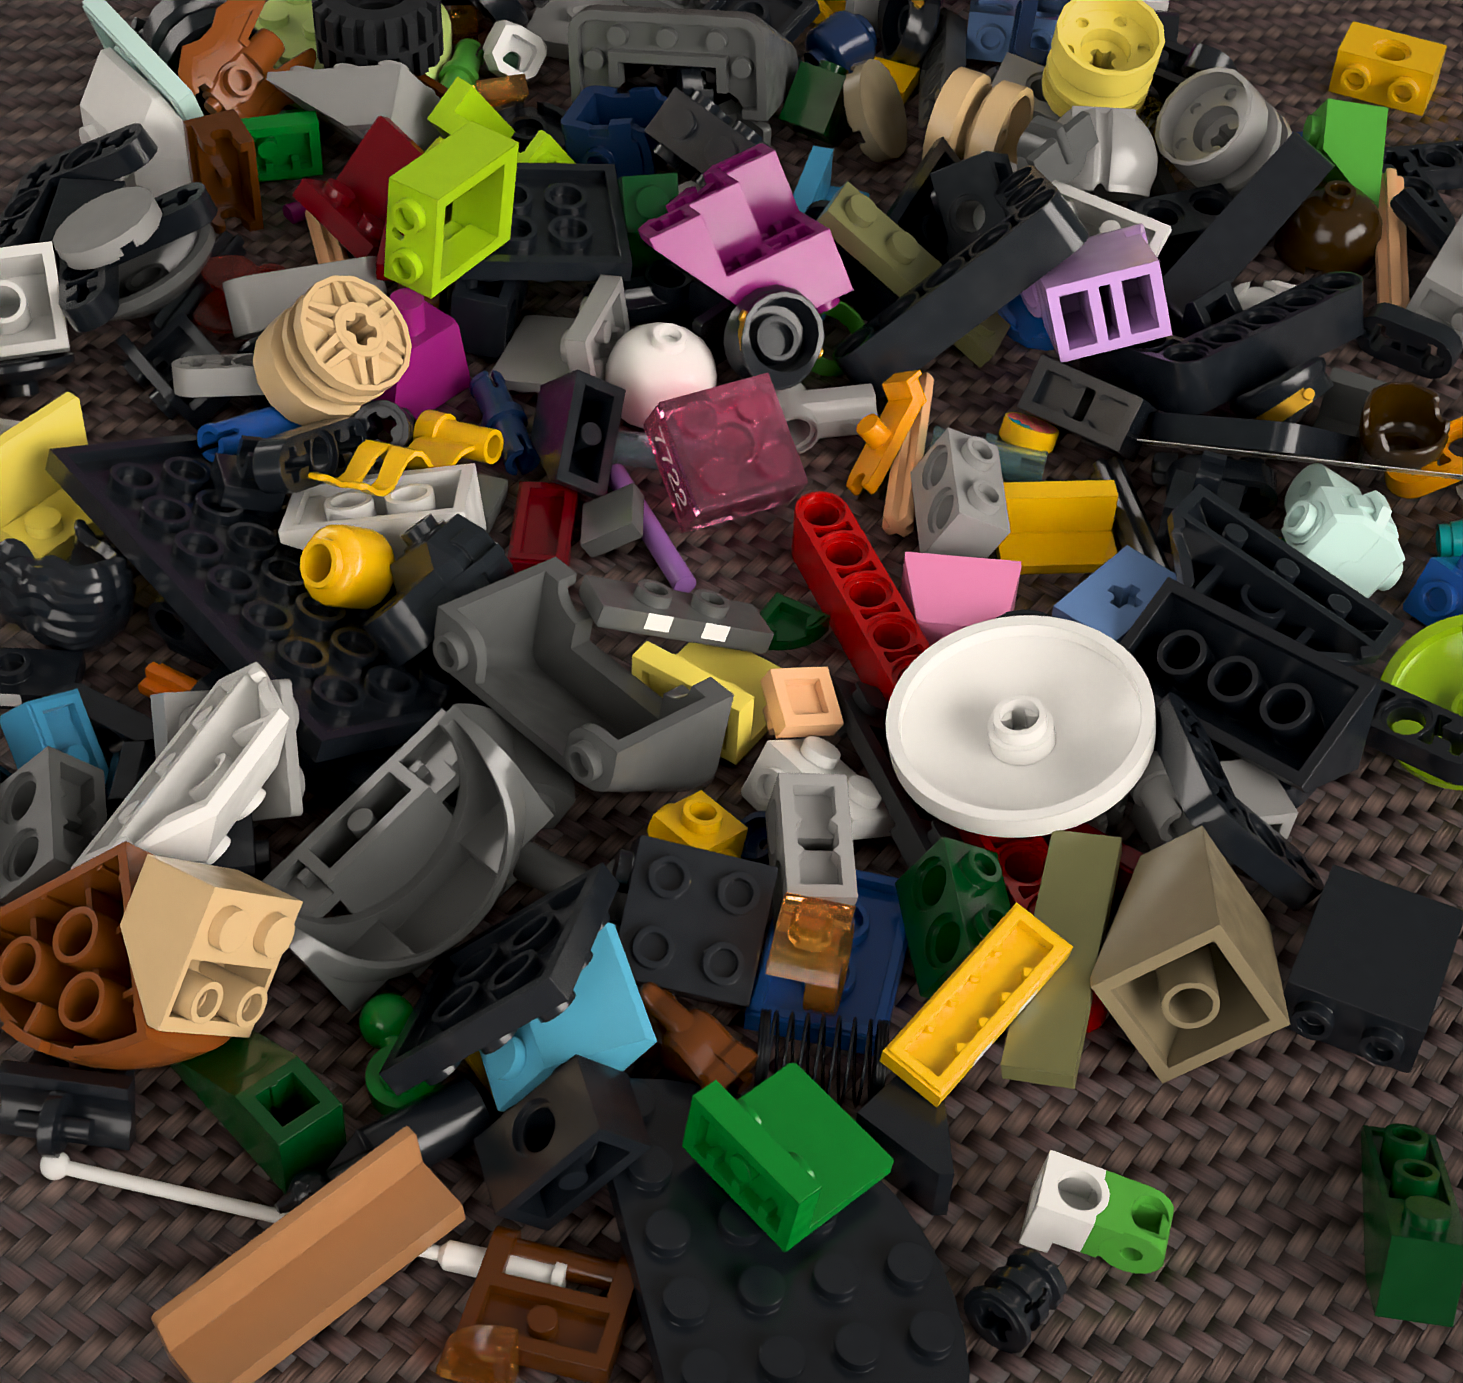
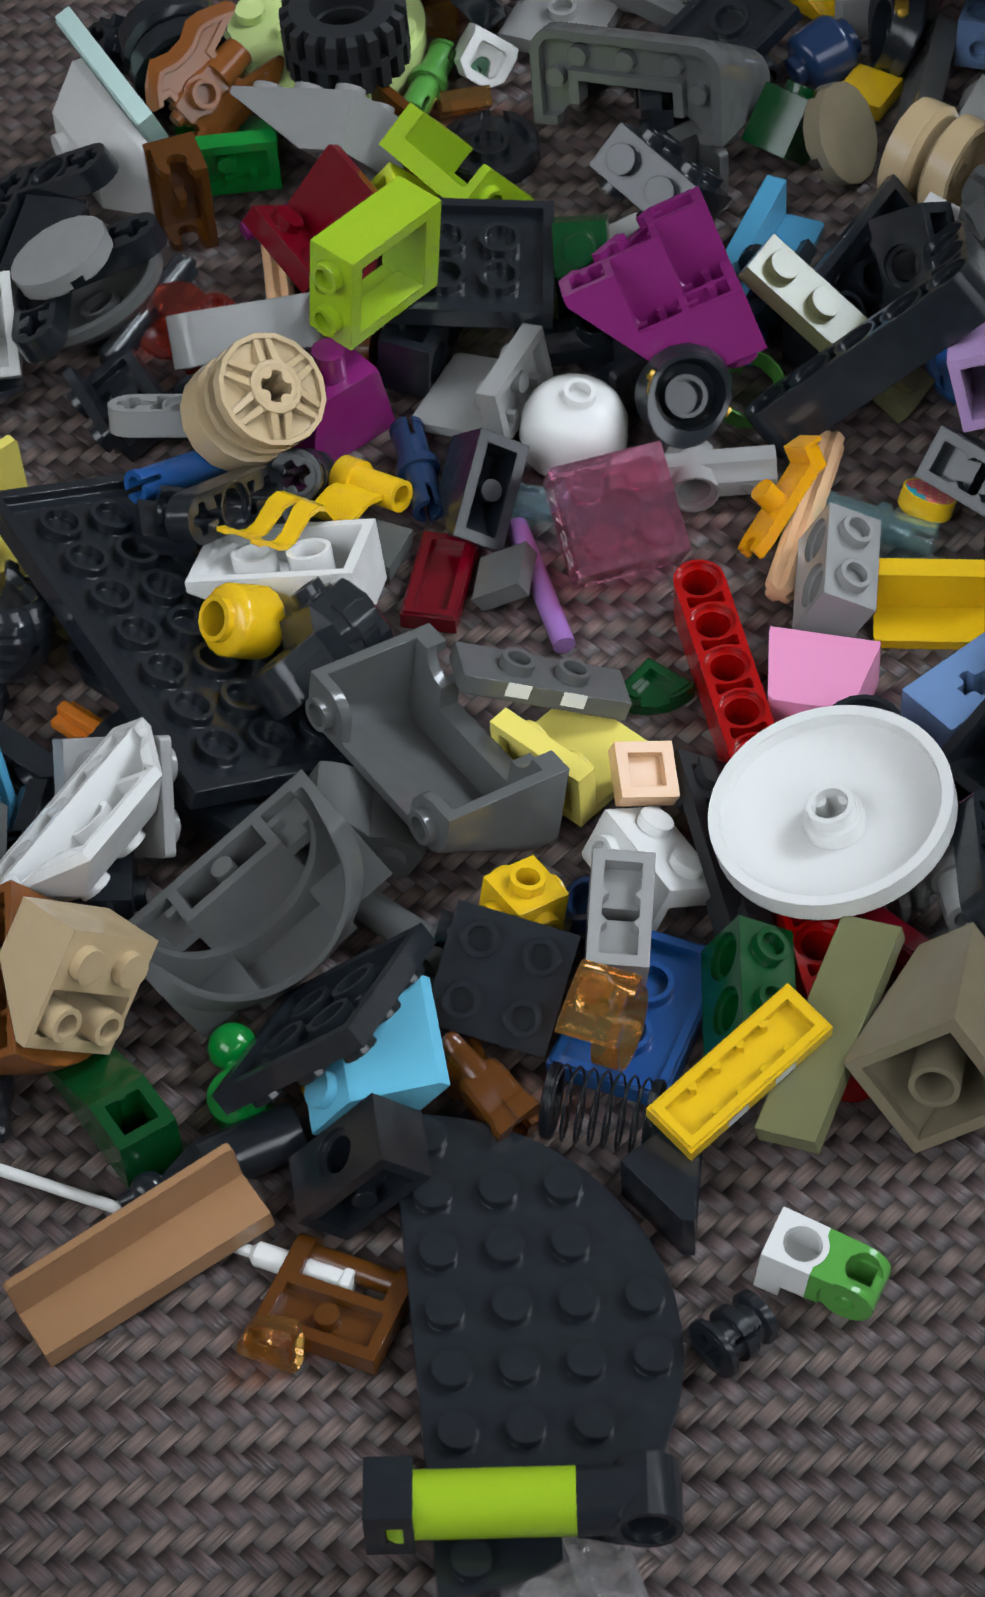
camera: 15 degrees right, 5 degrees up
(611, 129) = (562, 167): dark blue piece -> none
(783, 1152) = (547, 1189): green bracket -> none

